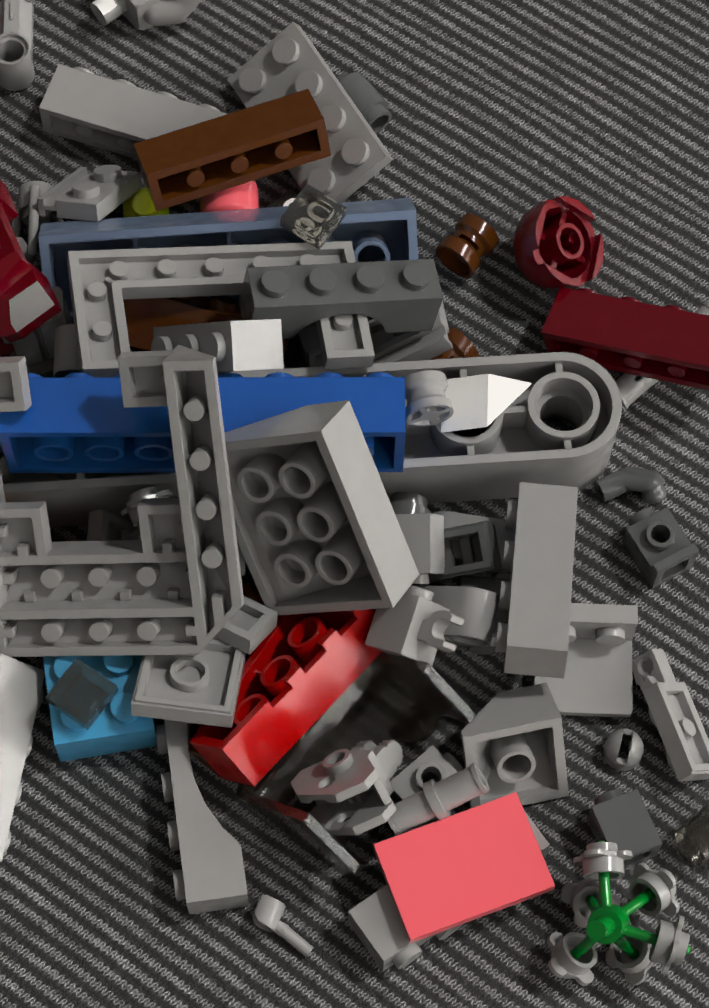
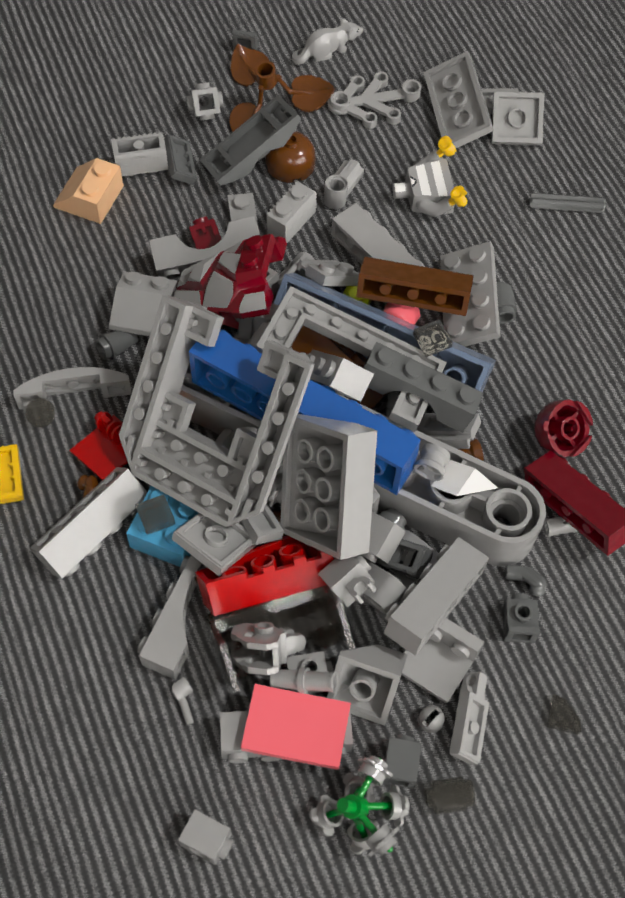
camera: 30 degrees right, 5 degrees down
(467, 245) = (514, 403): reddish brown wheel -> none

